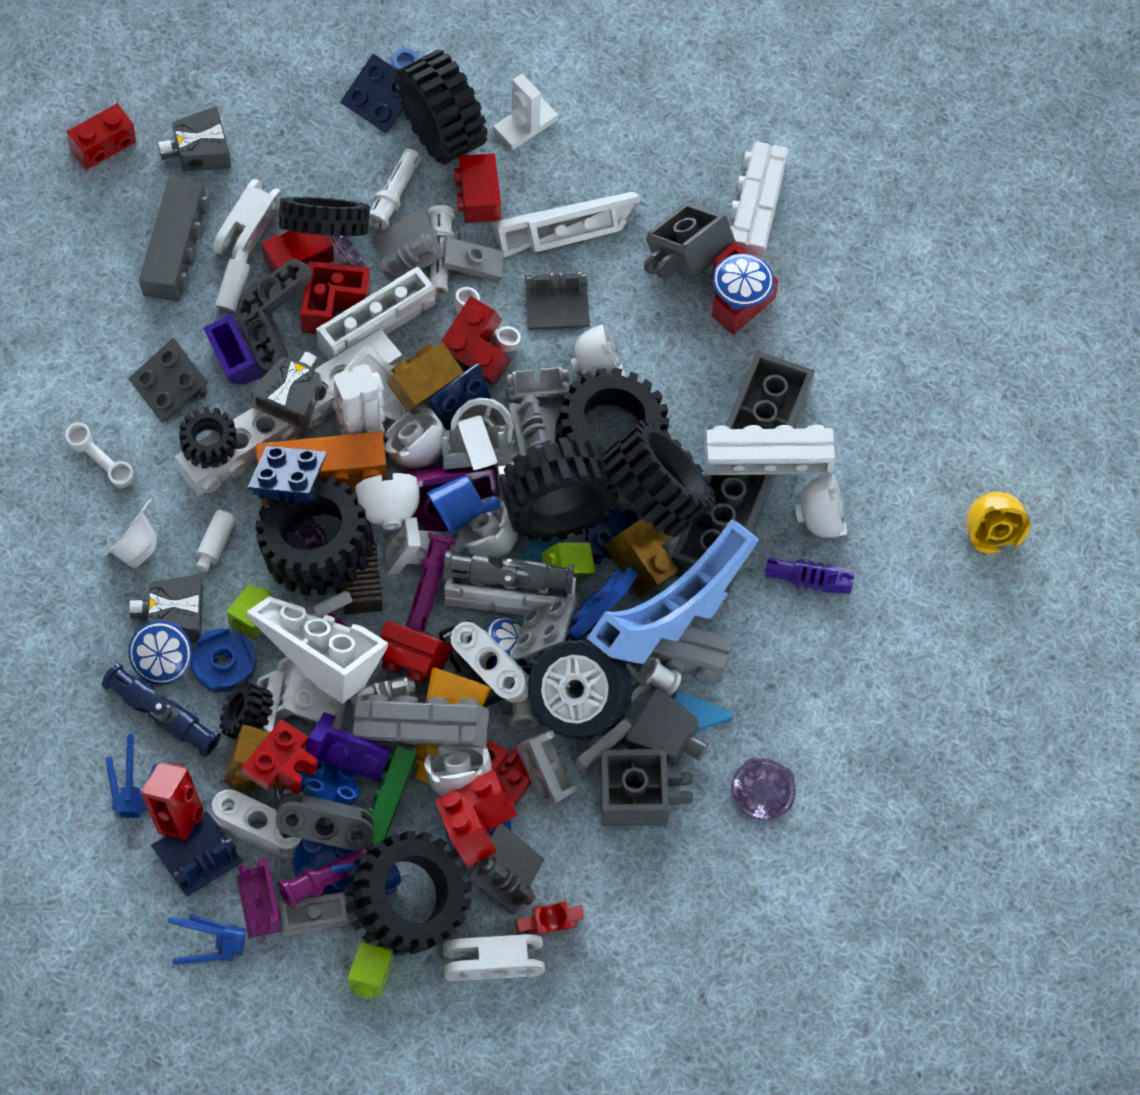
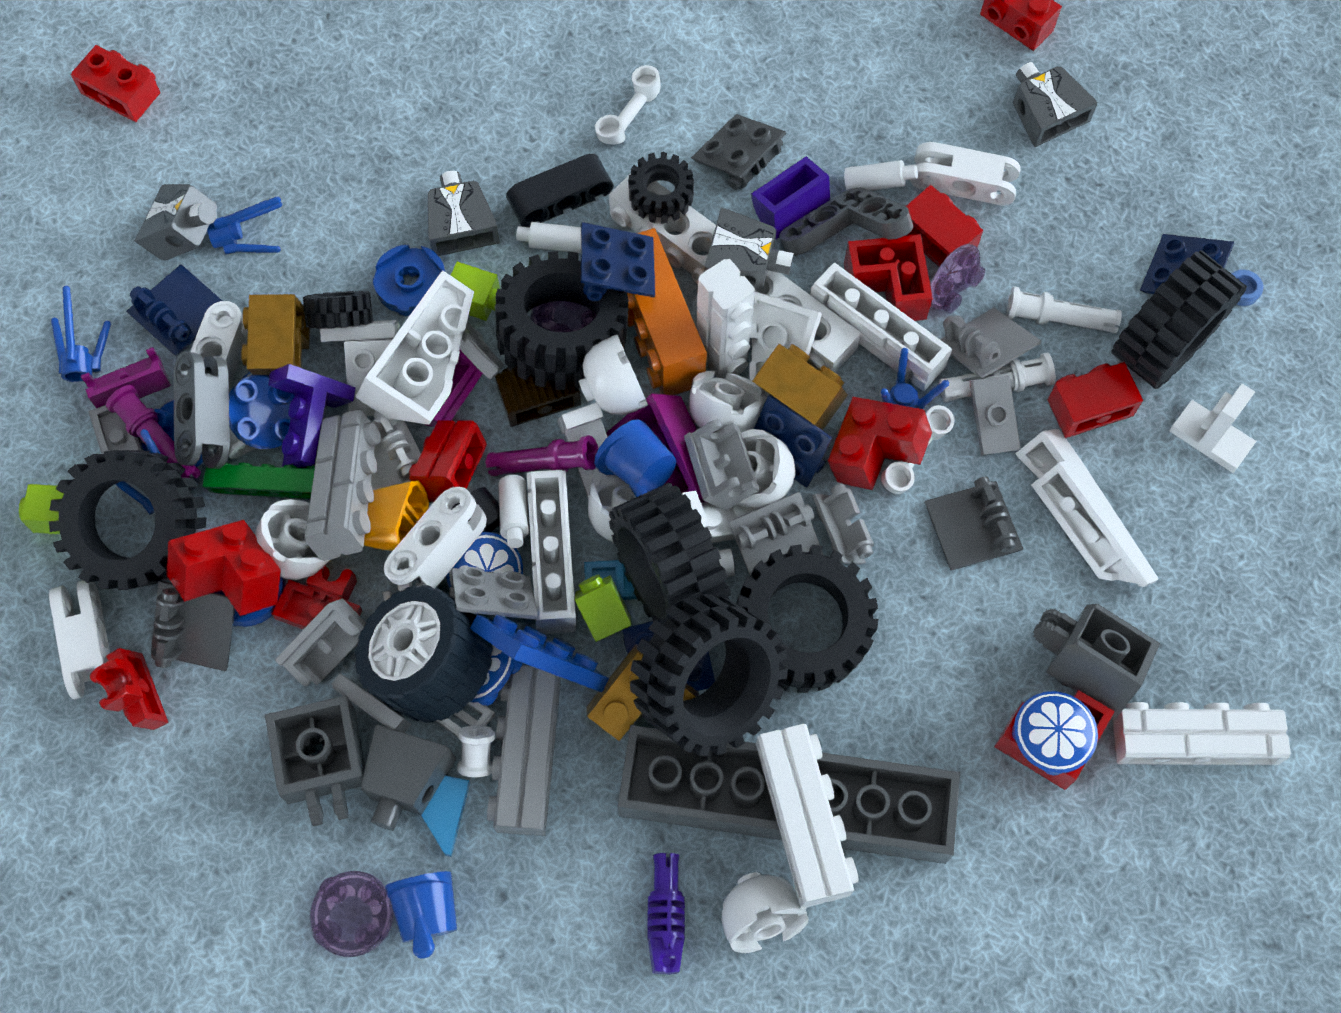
camera: 80 degrees right, 5 degrees up
(115, 830) = (176, 221): none -> dark grey torso
(137, 542) = (532, 155): white piece -> none
(143, 698) = (339, 230): dark blue piece -> none
(160, 652) = (400, 213): dish -> none
(171, 526) = (559, 189): none -> black beam
(172, 801) = (214, 260): red brick -> none
(174, 240) = (915, 108): dark grey brick -> none
(281, 758) = (256, 340): red plate -> none
(324, 216) = (985, 235): black tyre -> none
(440, 317) = (906, 394): none -> blue plant
(470, 608) = (513, 509): none -> white cylinder
(477, 442) = (722, 461): white sticker -> none
(493, 570) = (554, 538): dark grey piece -> none
(595, 351) = (903, 582): white cylinder -> none
(698, 592) = (539, 736): light blue arch -> none
(775, 731) = (423, 909): none -> blue hat

